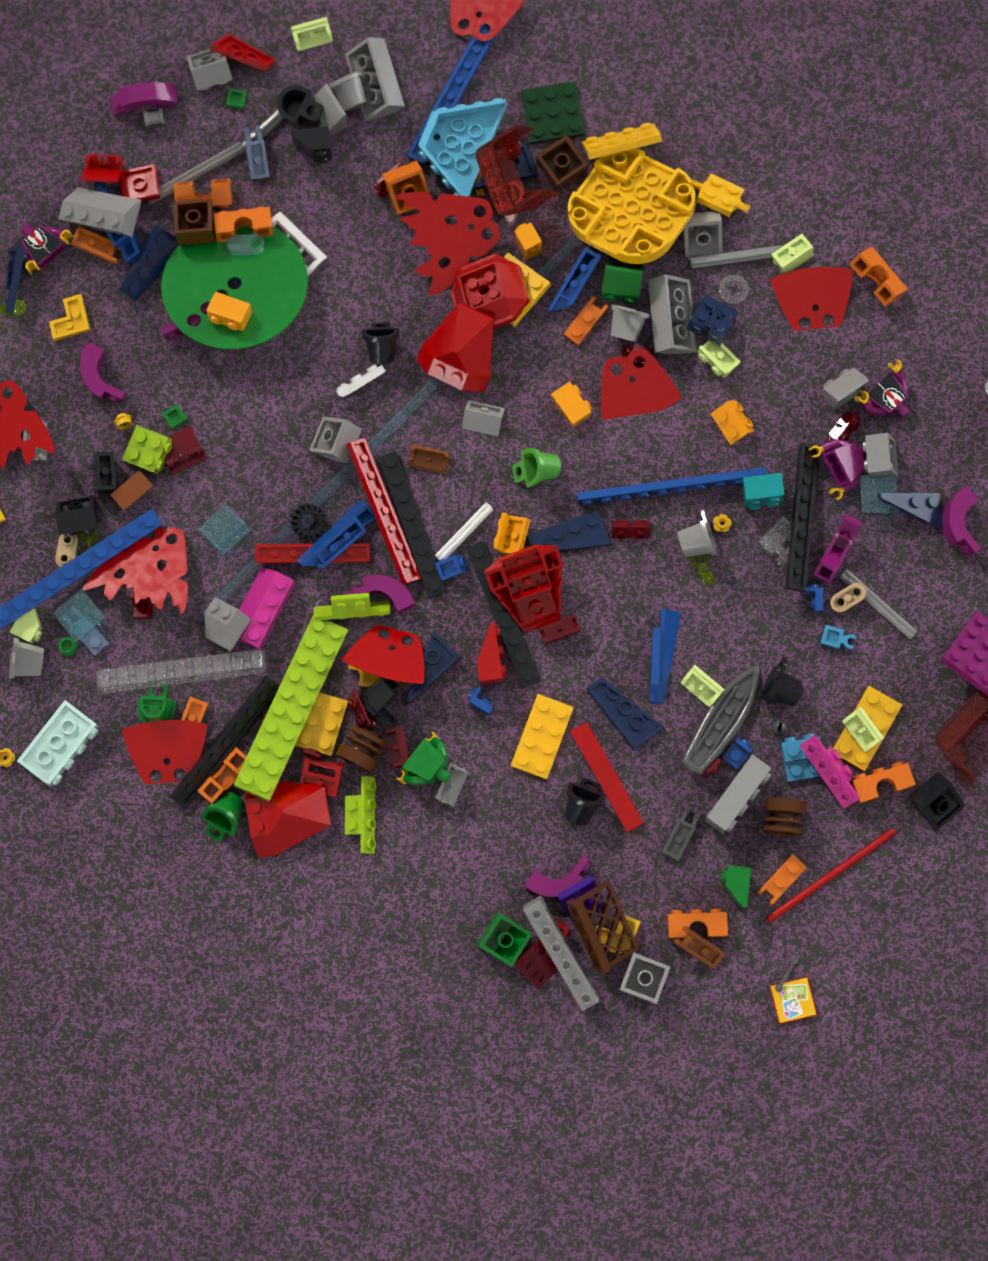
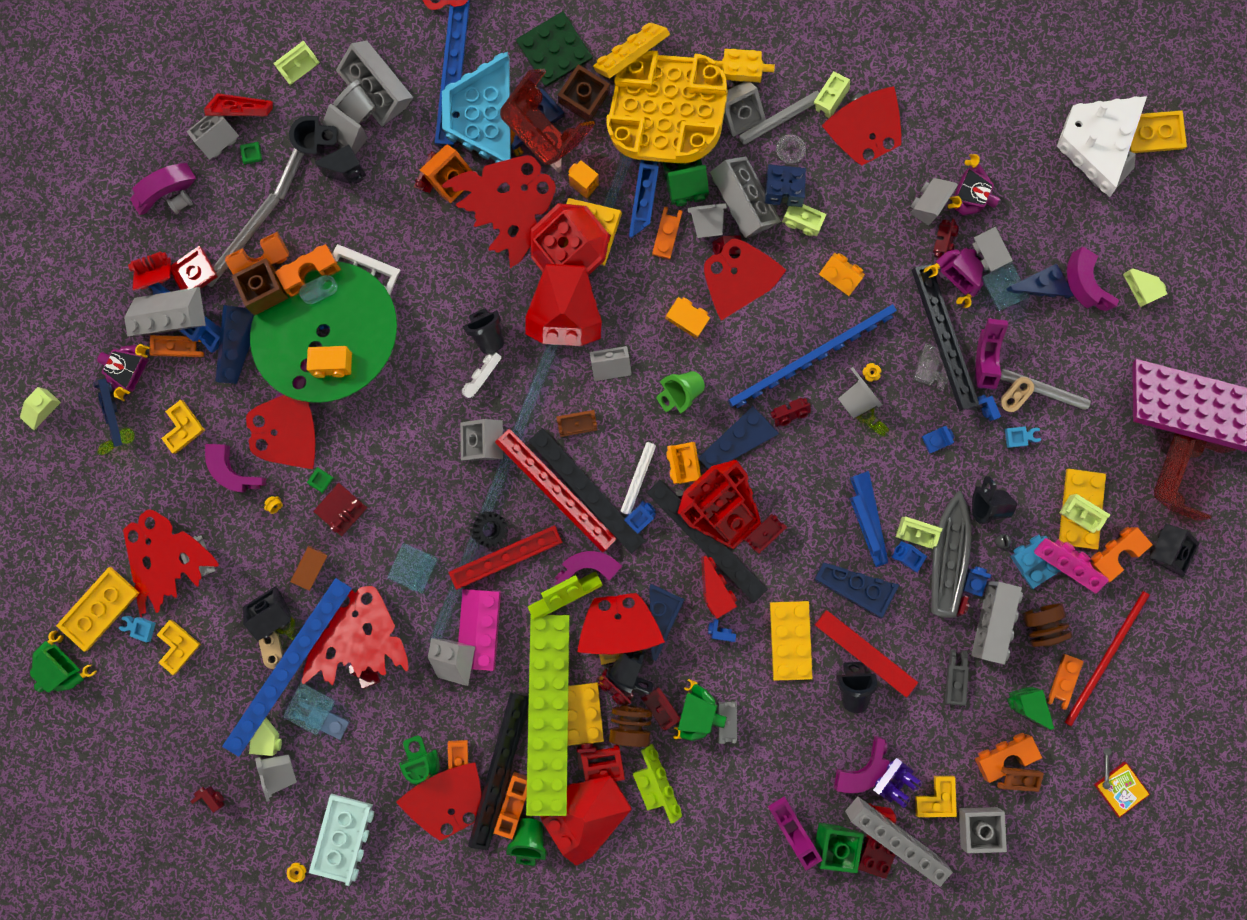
camera: 35 degrees left, 5 degrees up
(67, 646) = (310, 741): green plate -> none
(104, 472) = (275, 562): black brick -> none
(147, 449) = (307, 522): lime plate -> none
(171, 363) = (295, 428): none -> red piece
(180, 671) = (428, 721): clear beam -> none
(256, 155) = (292, 199): sand blue hinge -> none
(339, 536) = (523, 532): blue wedge -> none
(469, 906) = (795, 833): none -> magenta arch
(591, 937) = (909, 803): reddish brown fence -> none
(684, 704) = (909, 556): none -> blue bracket
(757, 609) = (938, 439): none -> blue bracket
(763, 491) = (900, 326): teal brick -> none
(872, 265) = (931, 87): orange arch -> none

